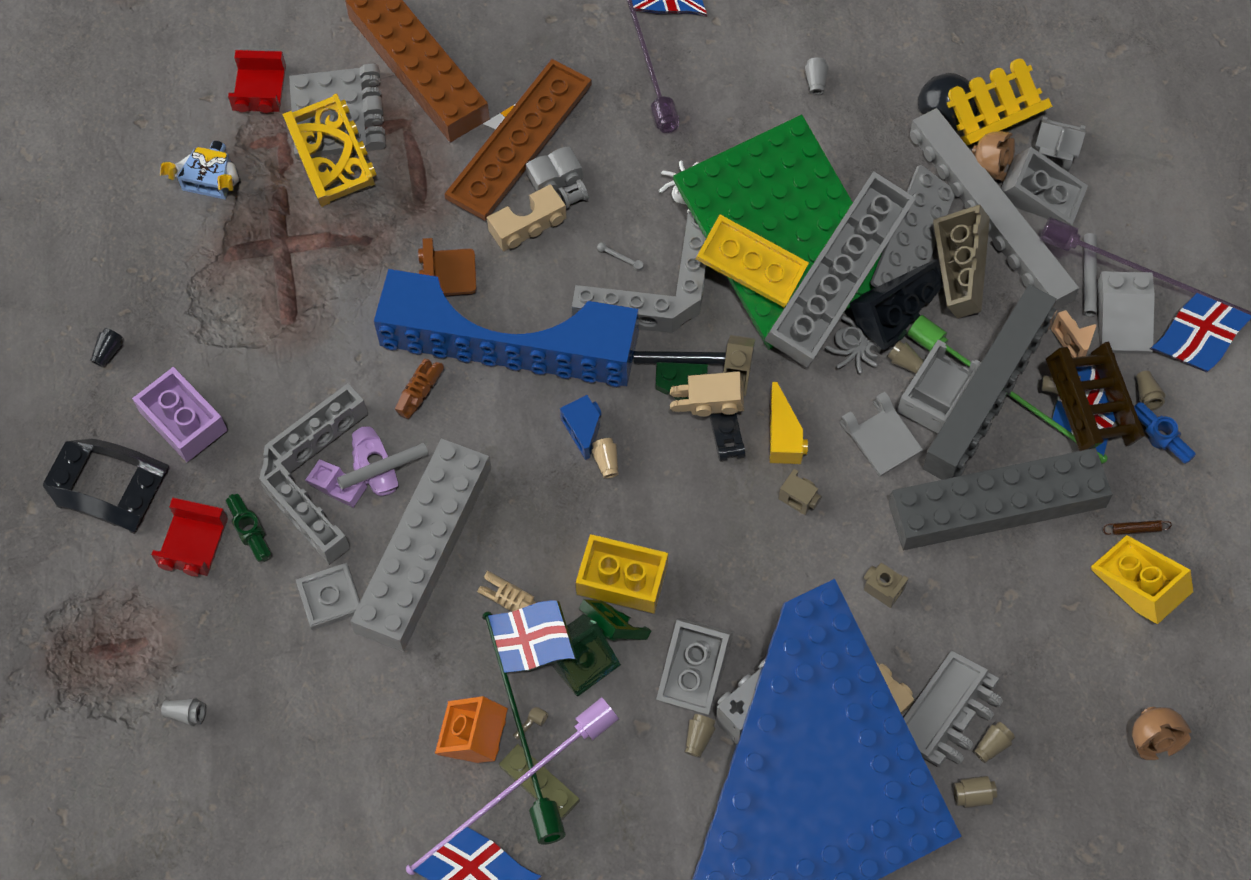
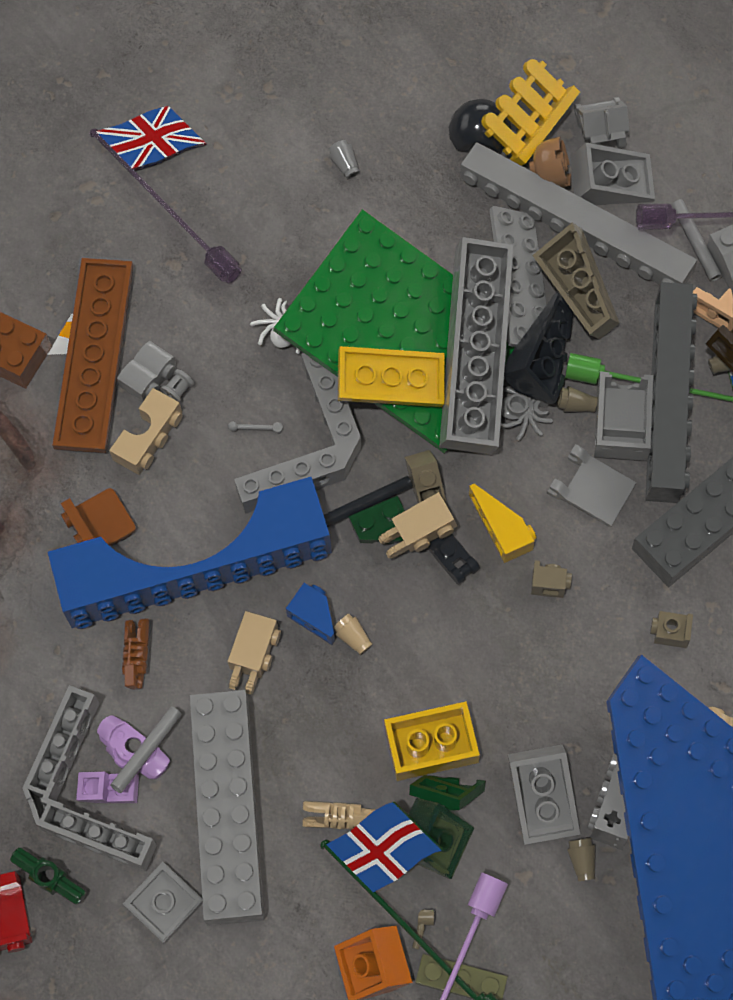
camera: 25 degrees left, 5 degrees up
(515, 430) = (252, 649): none -> tan hinge

